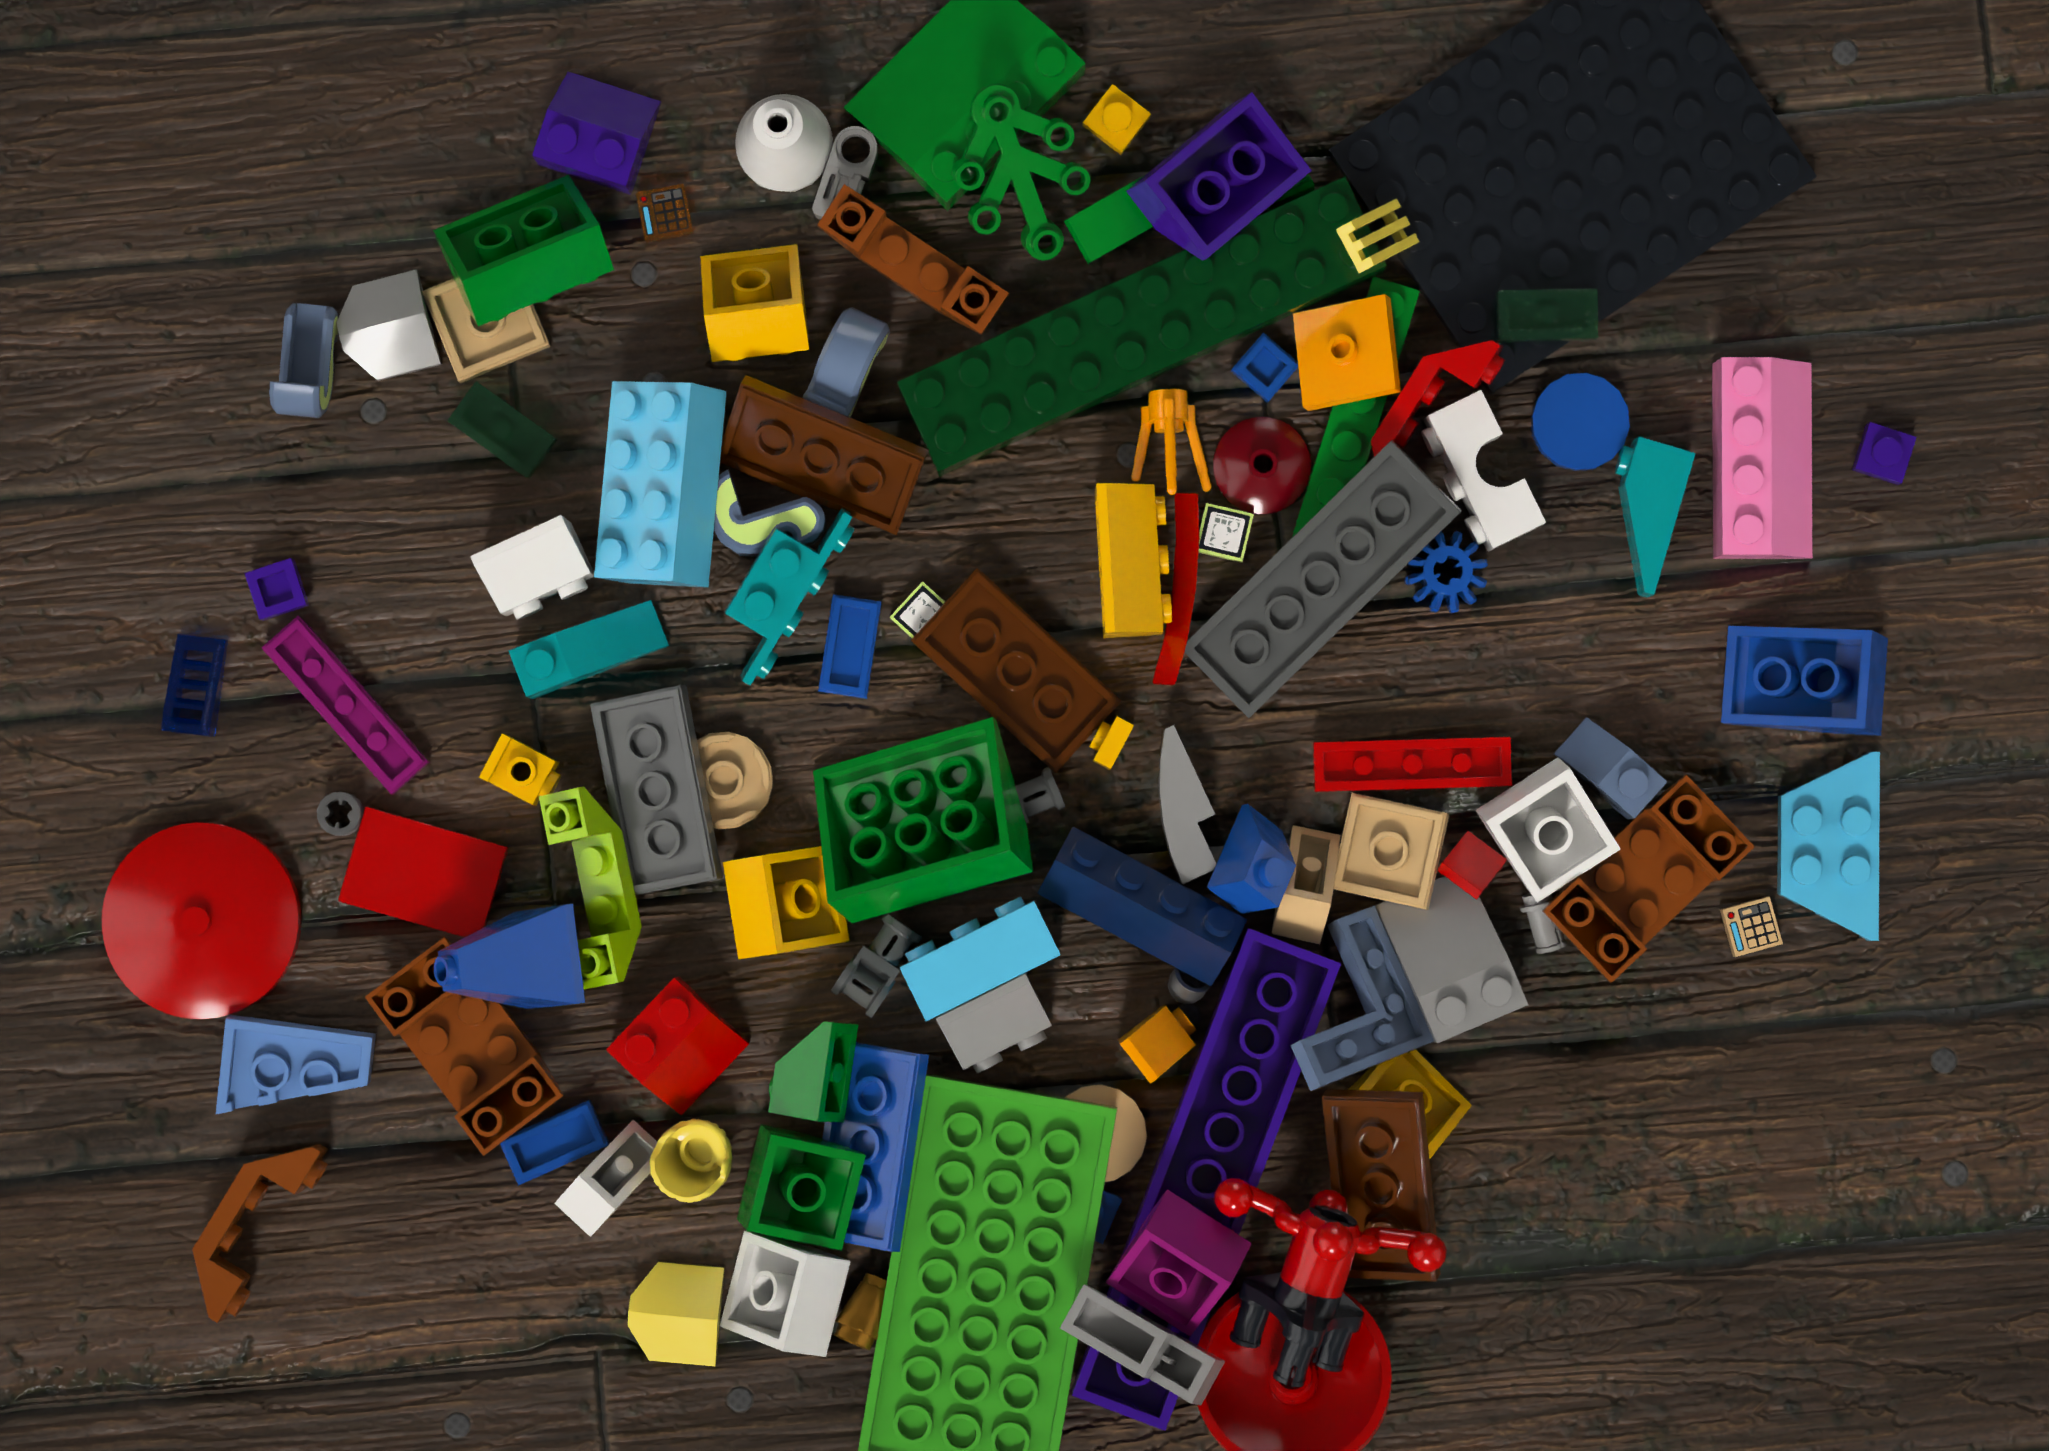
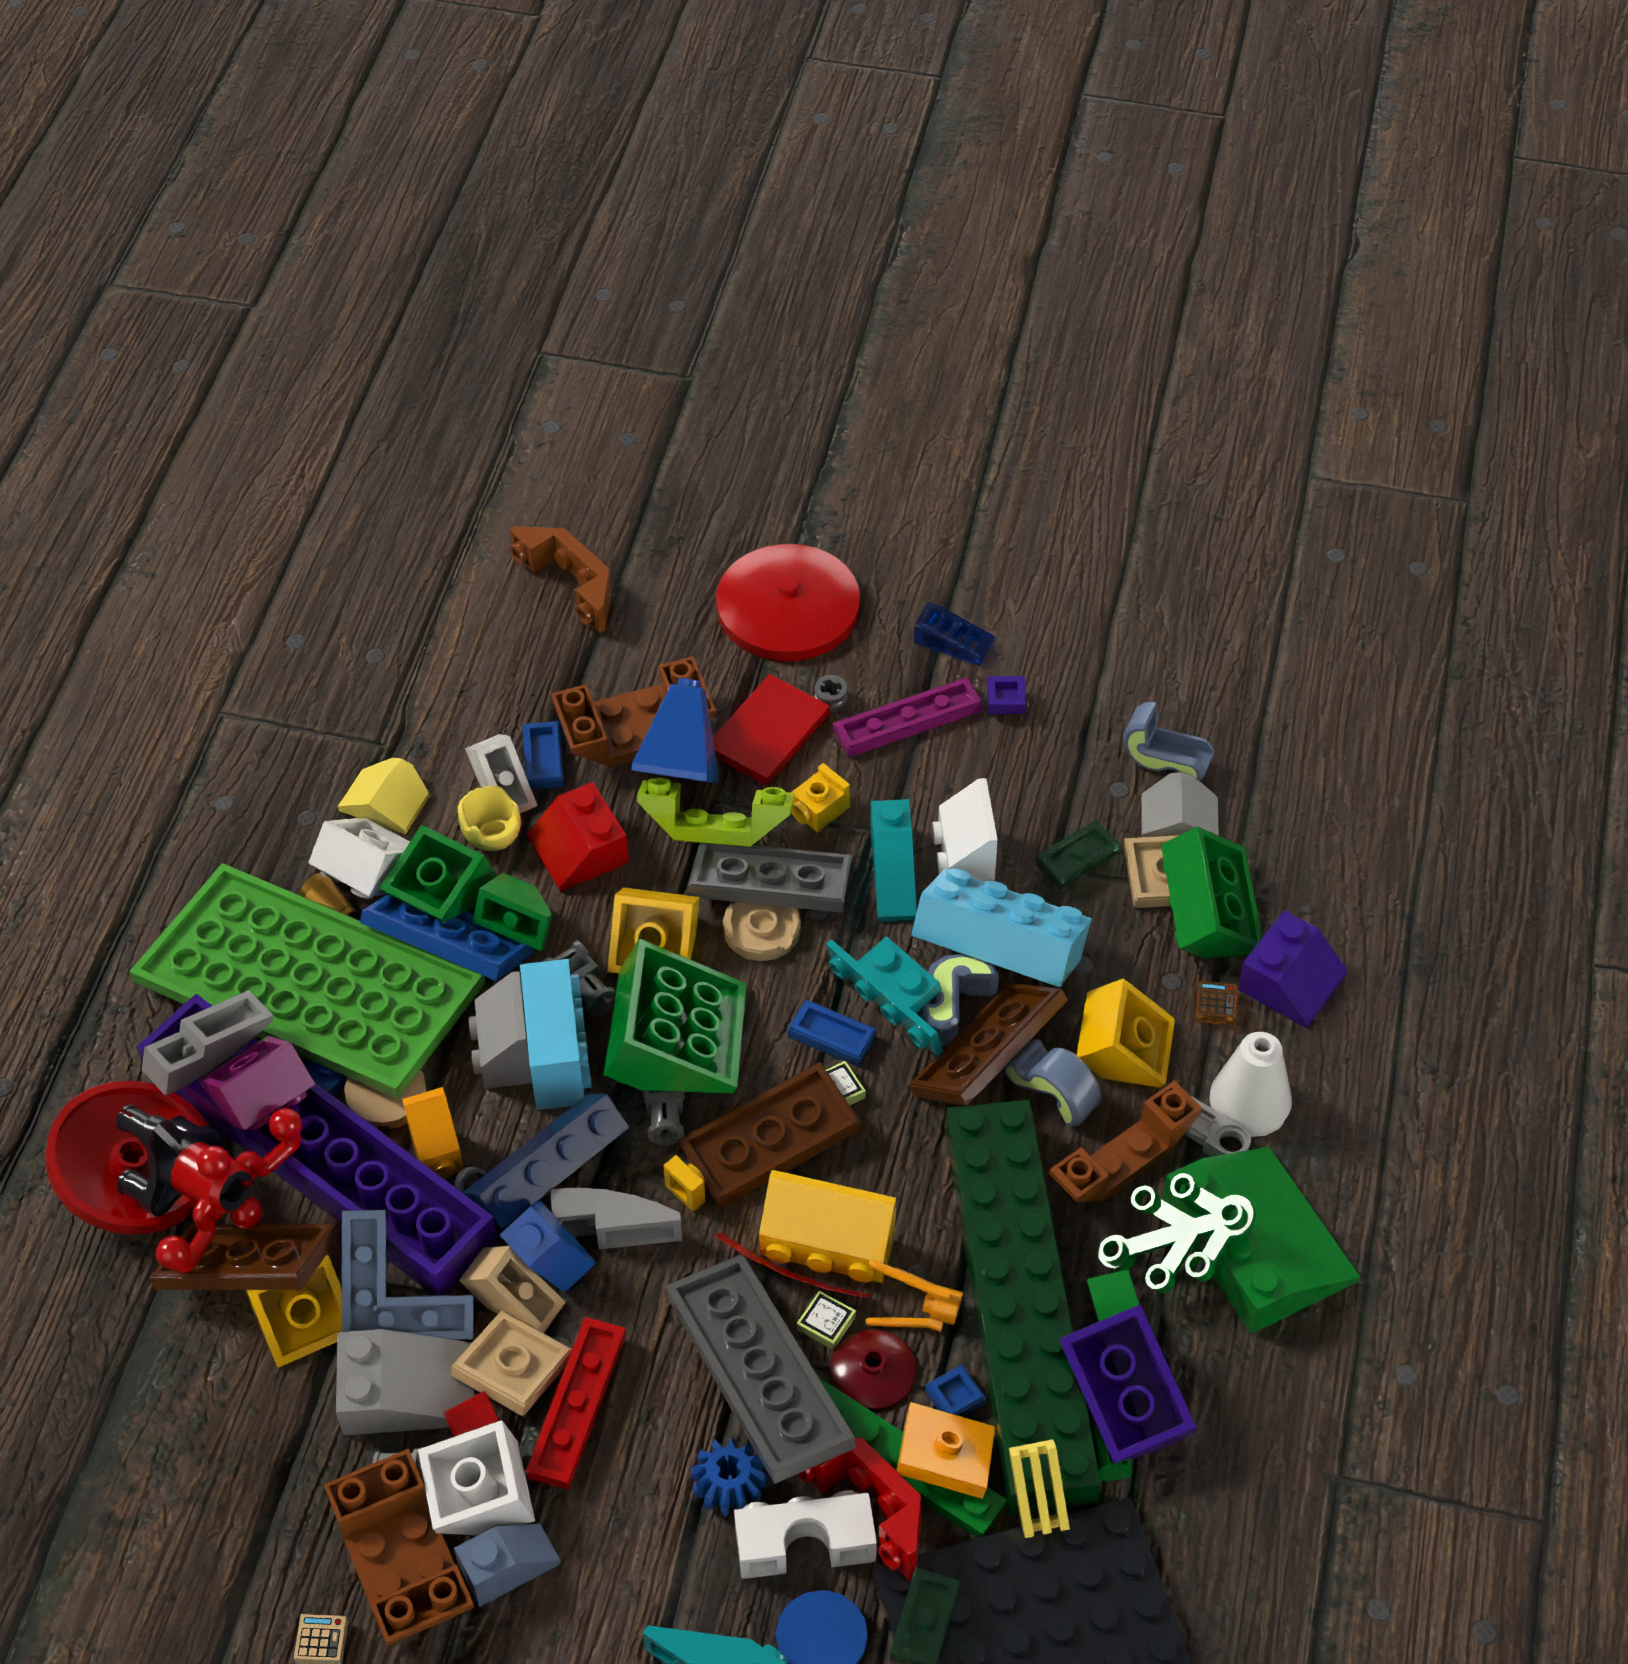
camera: 110 degrees right, 35 degrees down
(288, 1060) = (669, 619): medium blue wing -> none
(1116, 119) = (1204, 1342): yellow plate -> none

